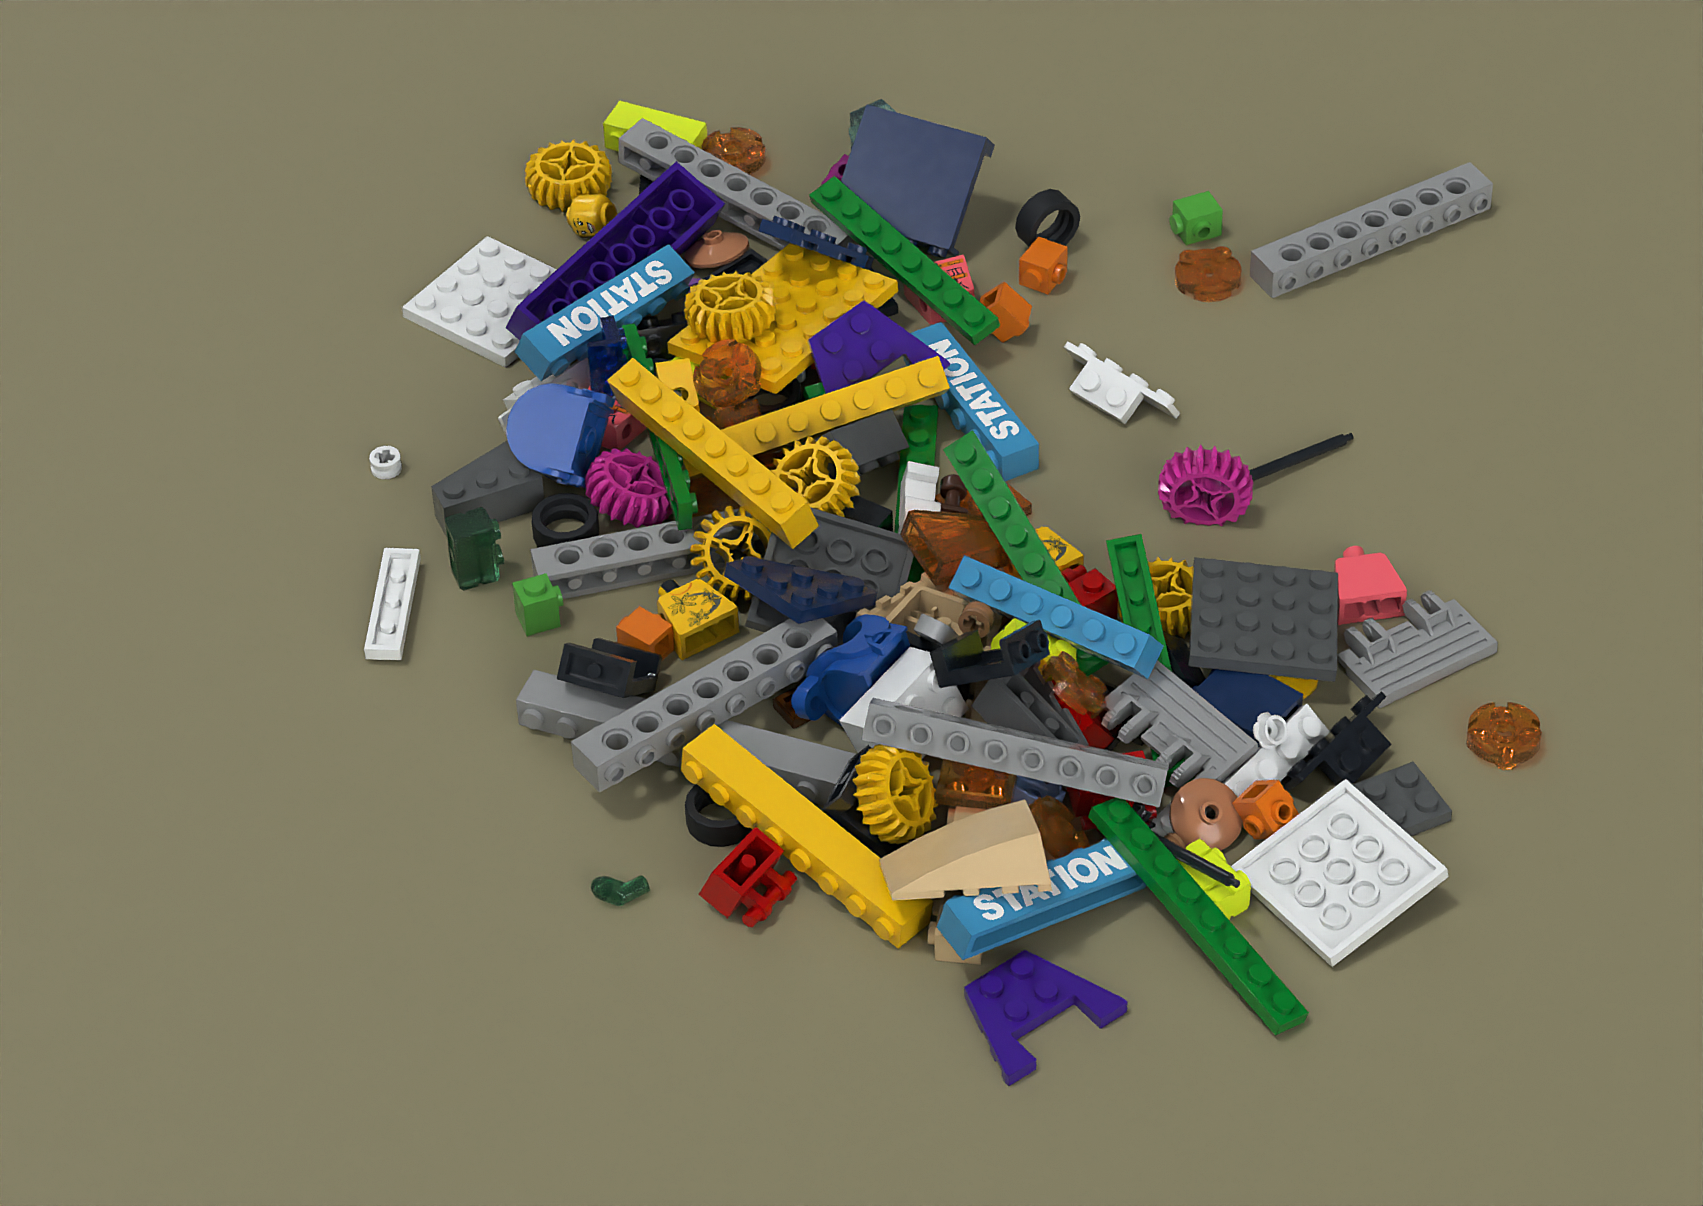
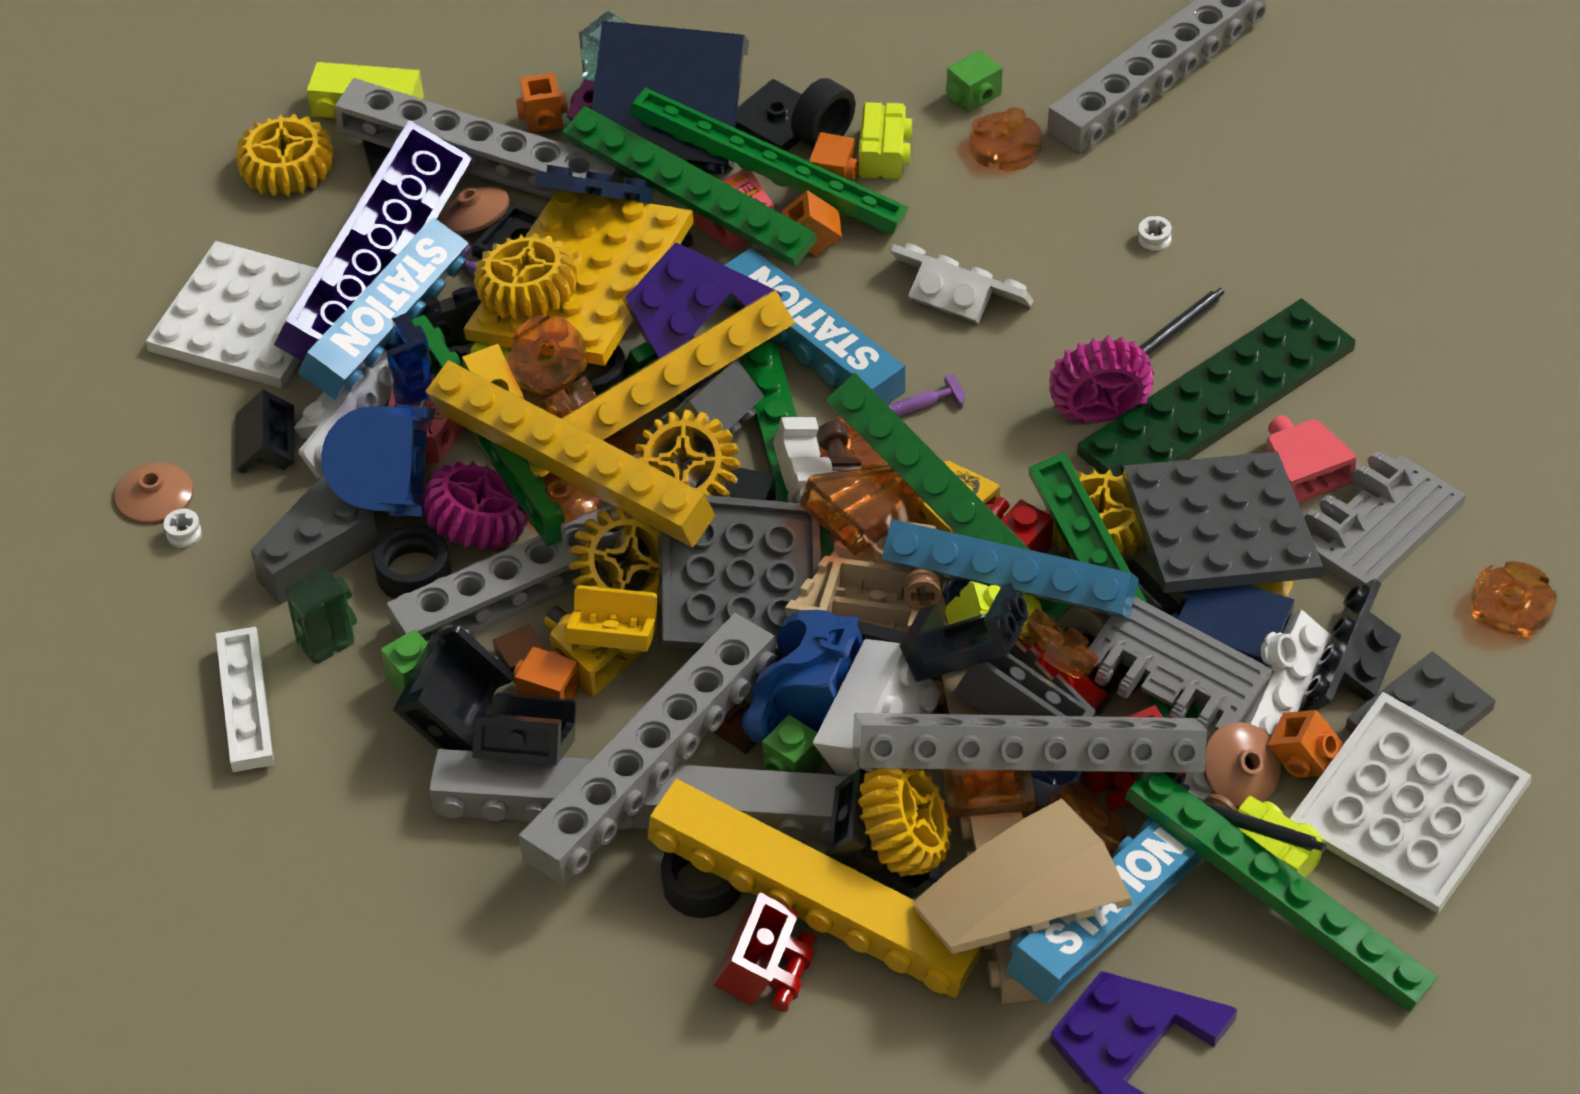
camera: 15 degrees left, 5 degrees up
(371, 428) = (153, 492): none -> nougat dish
(478, 398) = (264, 431): none -> black panel
(560, 616) = (450, 687): none -> black panel
(590, 214) = (325, 196): yellow head -> none
(619, 892) = (617, 1001): clear green arm -> none
(626, 604) = (516, 645): none -> reddish brown tile
(708, 595) = (612, 619): none -> yellow bracket
(746, 142) = (468, 83): clear orange plate -> none
(798, 590) = (716, 596): dark blue plate -> none
(803, 169) = (543, 110): none -> orange brick
(824, 728) = (791, 748): none -> bright green brick
(934, 630) = (889, 616): light grey beam -> none
(982, 252) = (767, 160): none -> green plate
(998, 217) = (769, 115): none -> black plate
(1049, 477) = (930, 397): none -> medium lavender piece
(1096, 254) = (883, 140): none -> neon yellow brick
(1311, 368) = (1158, 225): none -> white bush
(1320, 517) = (1220, 392): none -> dark green plate

